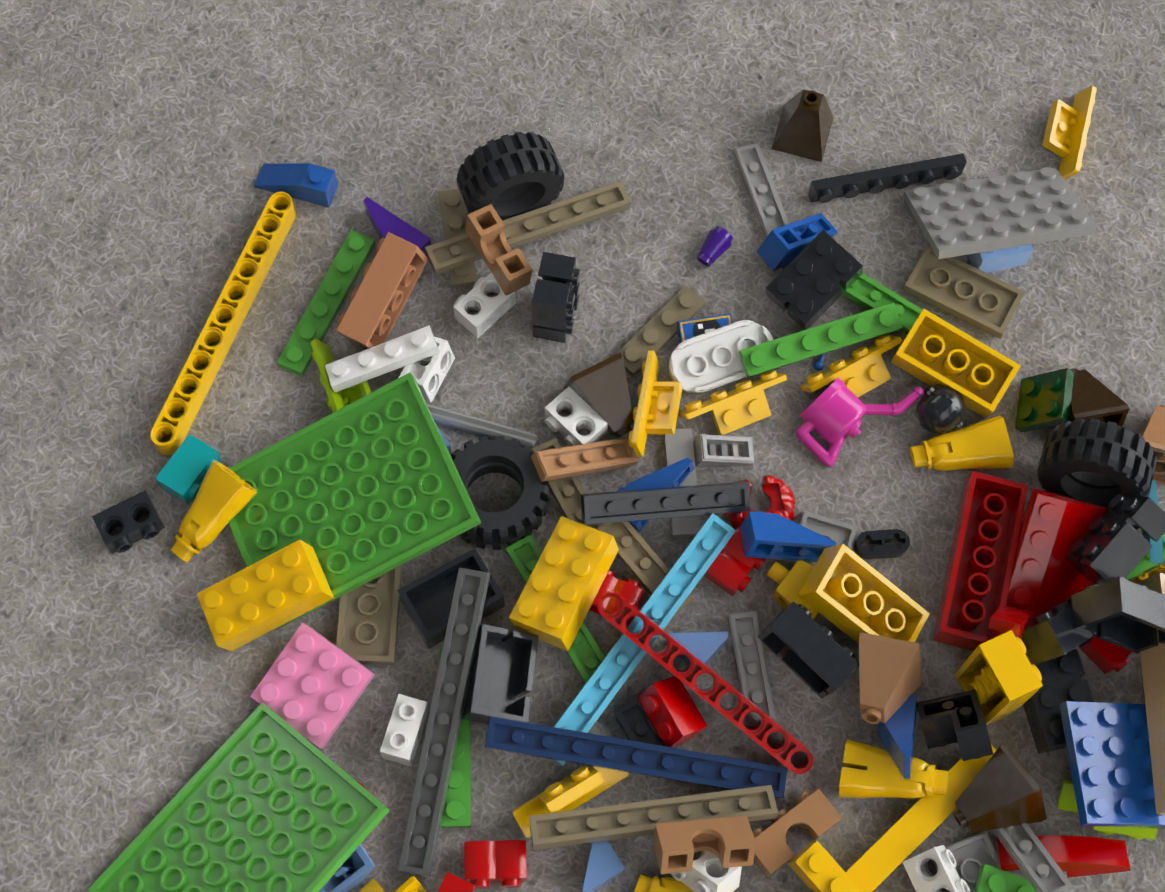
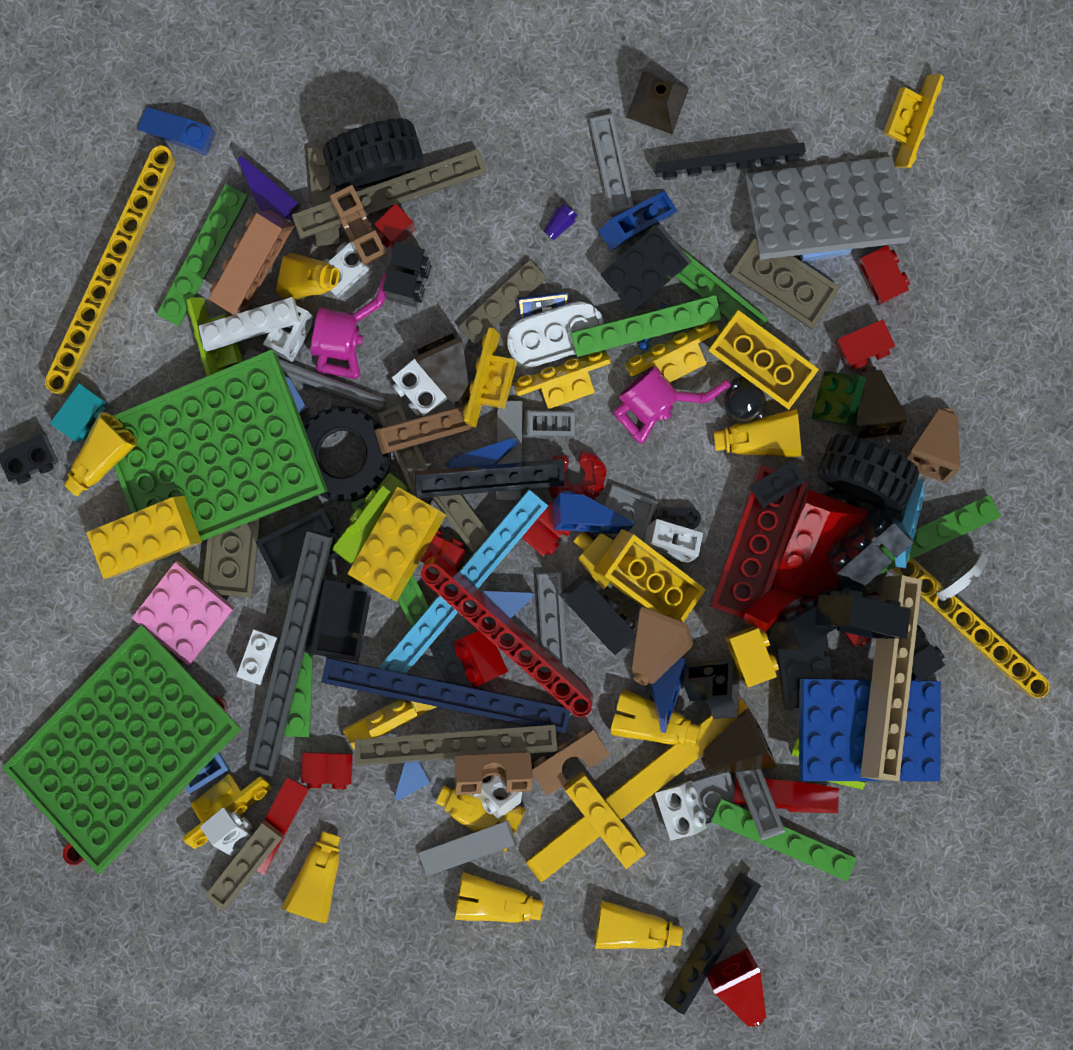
camera: 10 degrees right, 20 degrees up
(445, 306) = (305, 277): none -> yellow piece
(481, 371) = (337, 336): none -> dark pink piece
(524, 559) = (365, 519): none -> lime bracket
(534, 245) = (394, 227): none -> red brick
(890, 560) = (673, 541): none -> white brick
(995, 487) = (777, 484): none -> black plate
(1062, 347) = (865, 344): none -> red brick
(1068, 278) = (884, 274): none -> red brick

